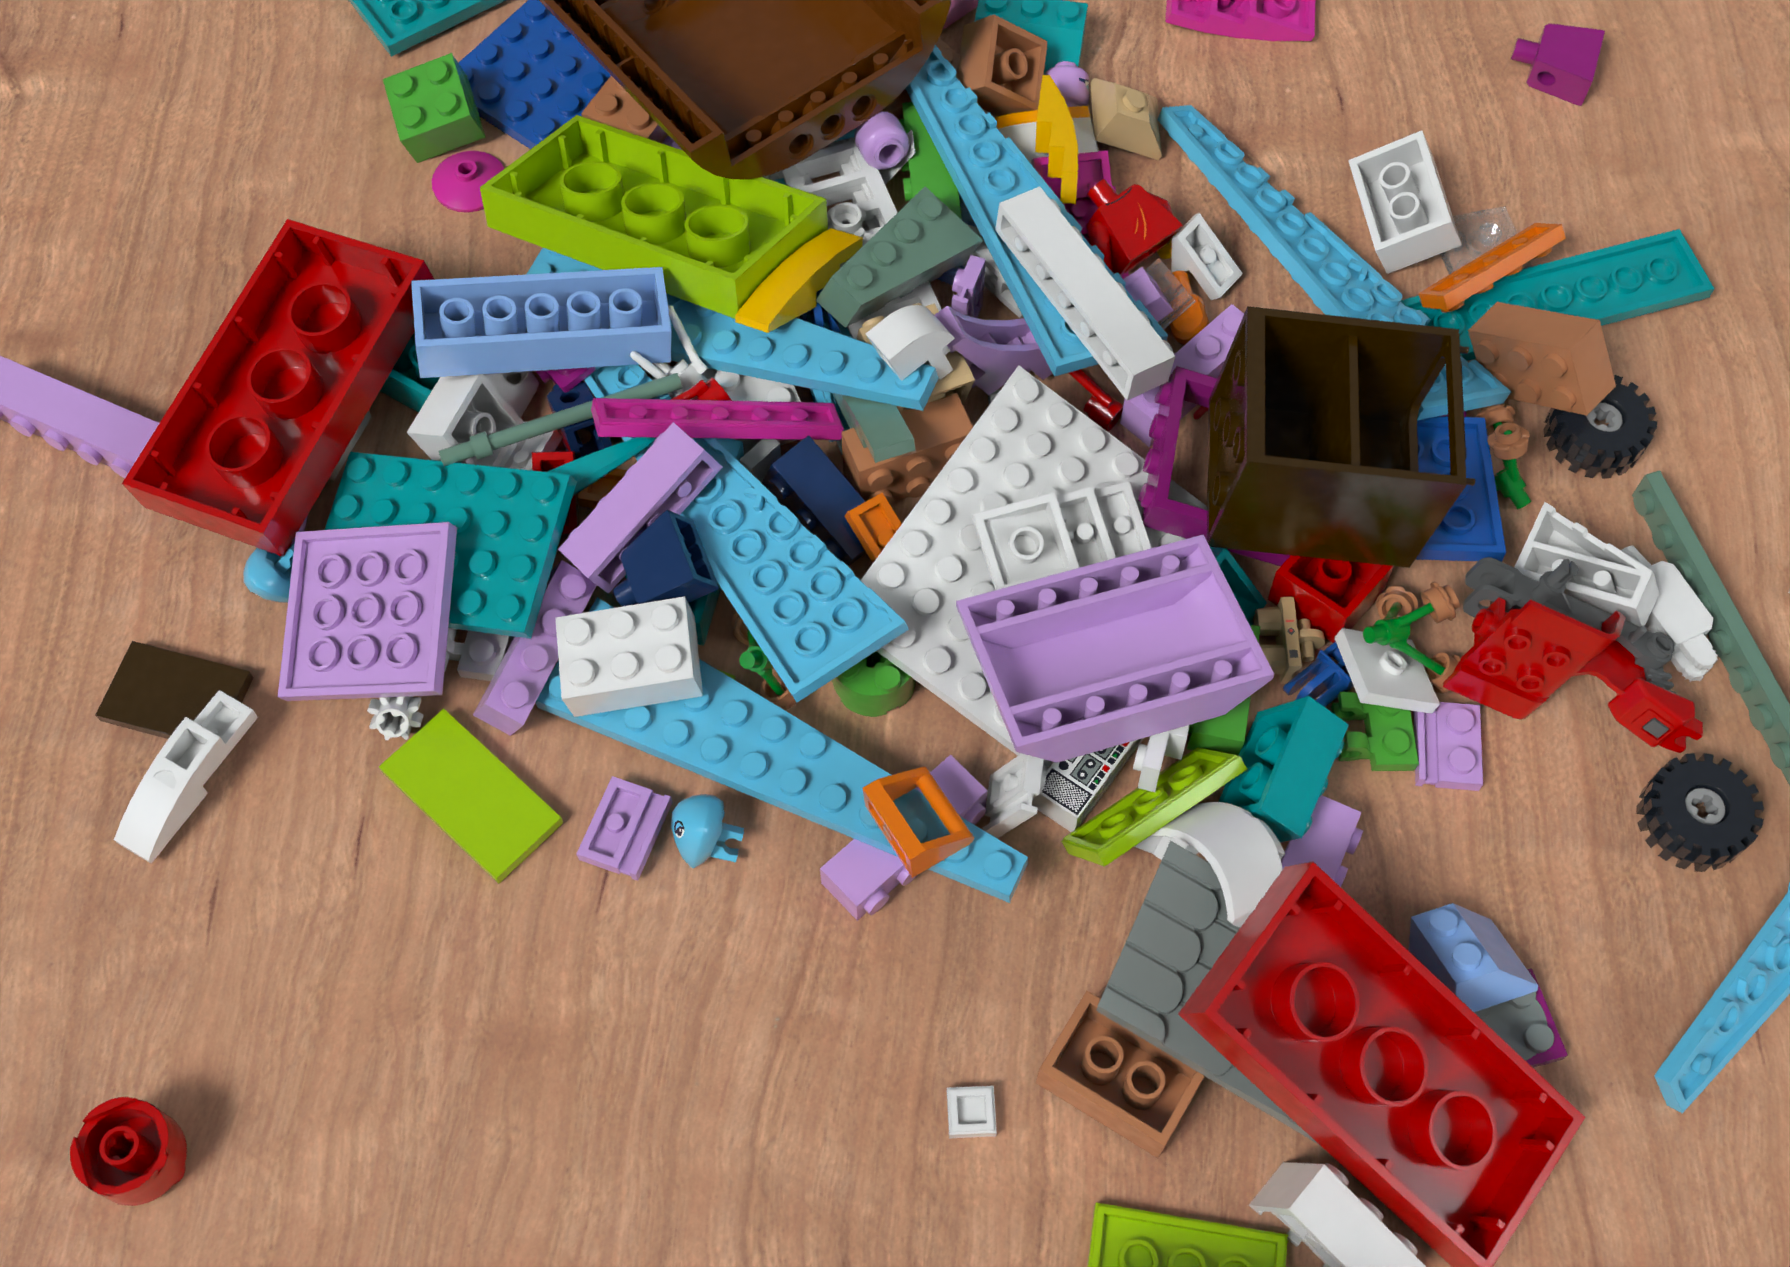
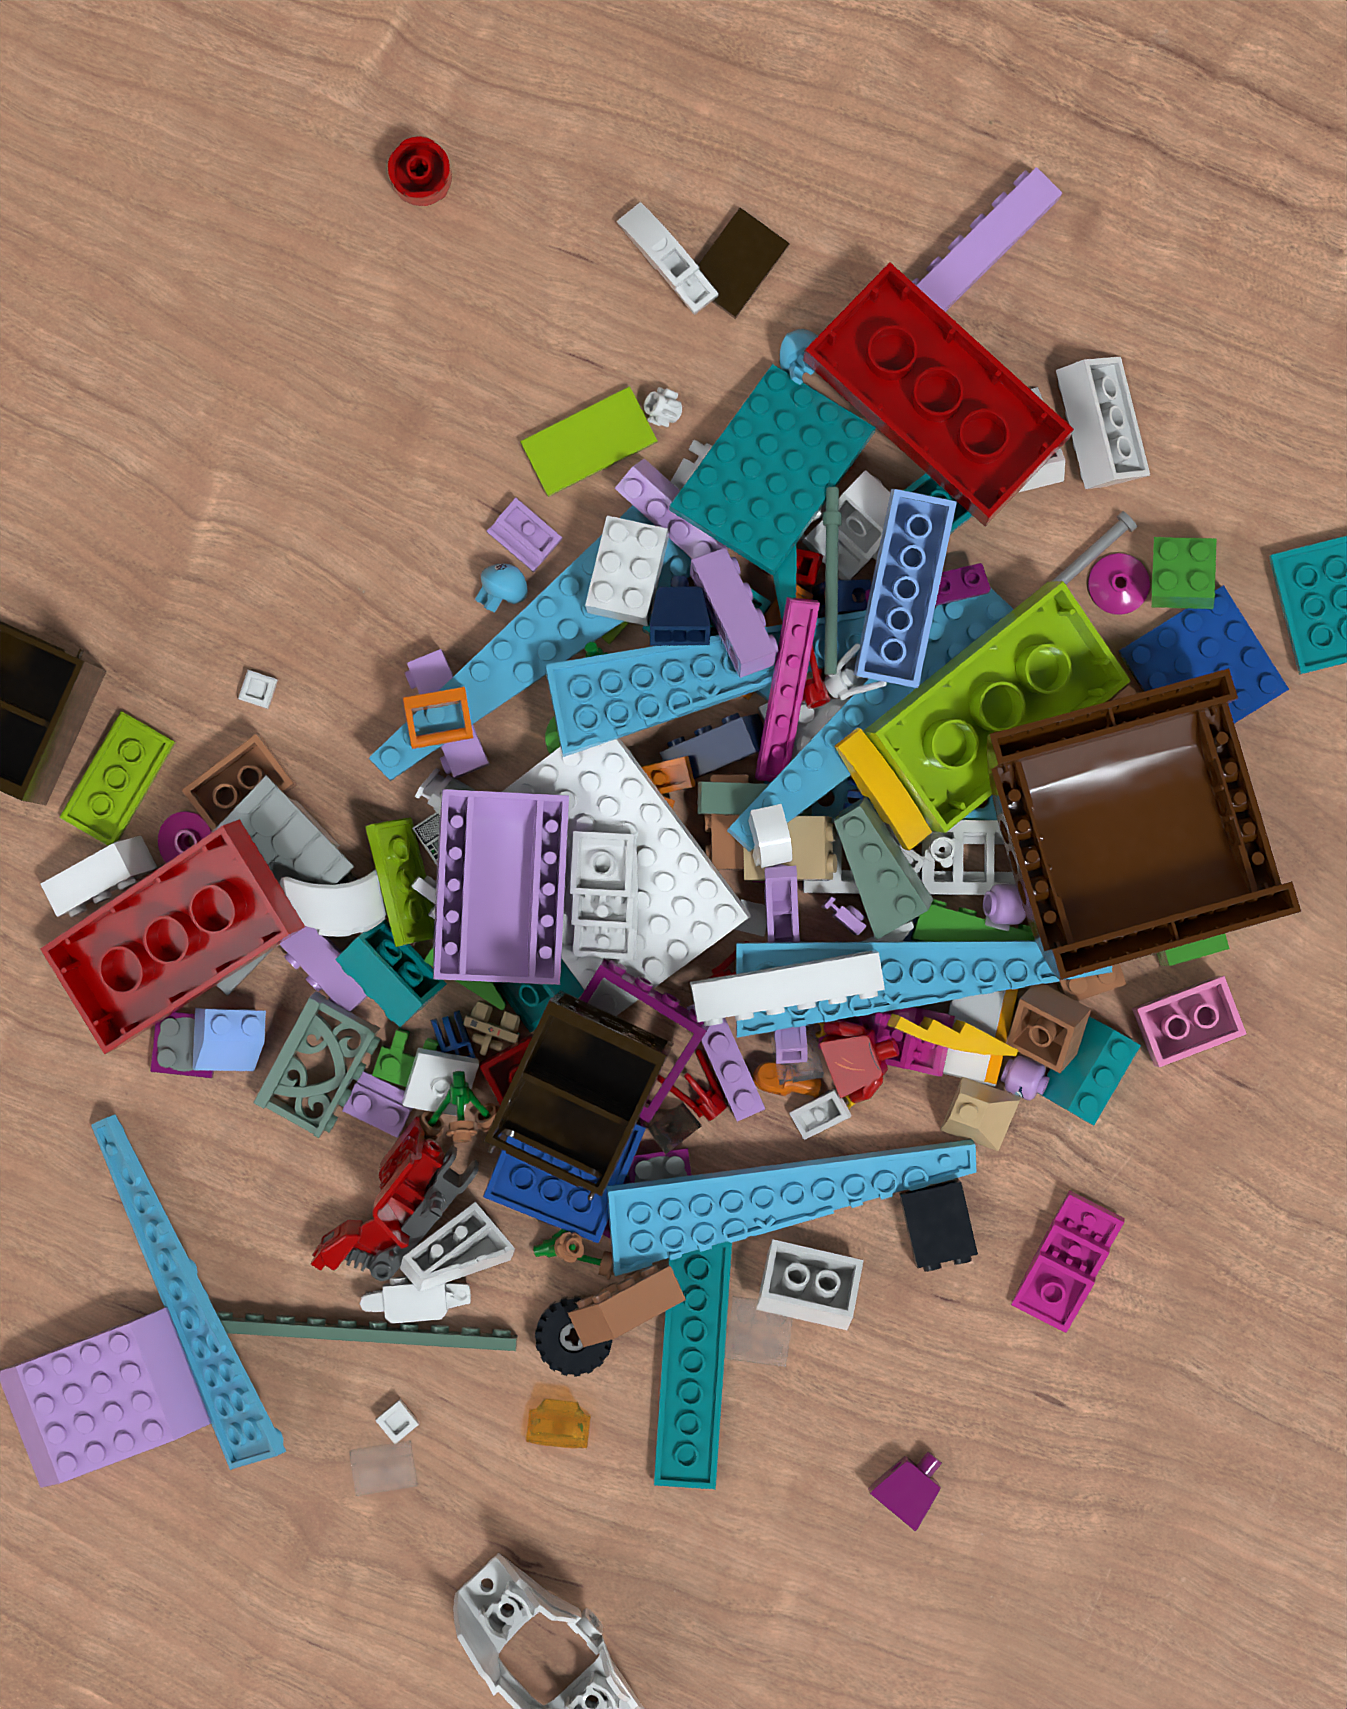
camera: 110 degrees right, 25 degrees up
(235, 259) = (1103, 422): none -> white slope
(368, 612) = (730, 406): lavender plate -> none
(394, 189) = (1125, 523): none -> light grey bar
(1245, 1142) = (175, 833): none -> dark pink dish
(1269, 117) = (938, 1225): none -> black brick
(1471, 798) = (280, 1083): none -> sand green fence
(1491, 266) = (727, 1321): orange plate -> none
(1673, 818) = (289, 1244): black bush -> none
(1714, 411) = (558, 1425): none -> clear yellow slope

